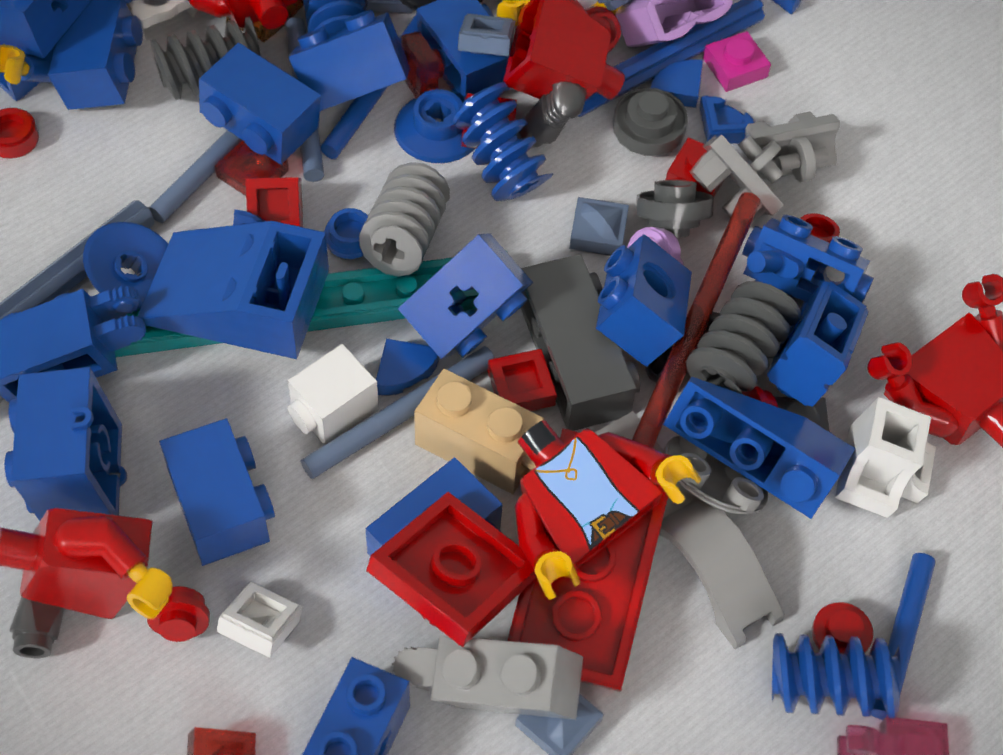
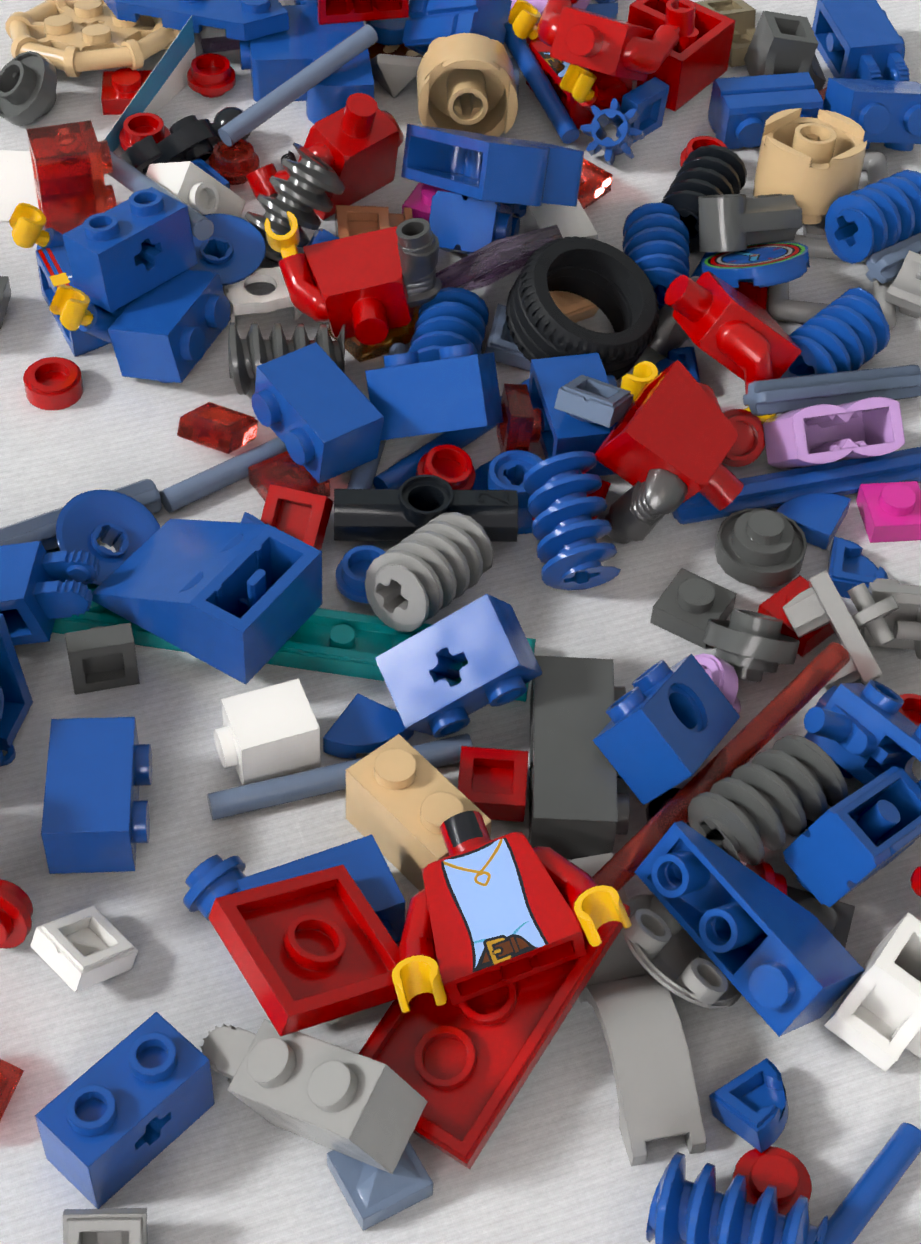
camera: 20 degrees right, 10 degrees down
(167, 370) = (102, 658): none -> dark grey plate
(173, 136) = (218, 427): none -> clear red tile
(343, 534) = (212, 880): none -> blue plate
(368, 167) = (400, 512): none -> black piece
(378, 125) = (449, 464): none -> red plate
(598, 226) = (654, 638): sand blue tile -> none
(617, 182) = (689, 605): none -> dark grey plate
(808, 575) = (753, 1105): none -> blue tile

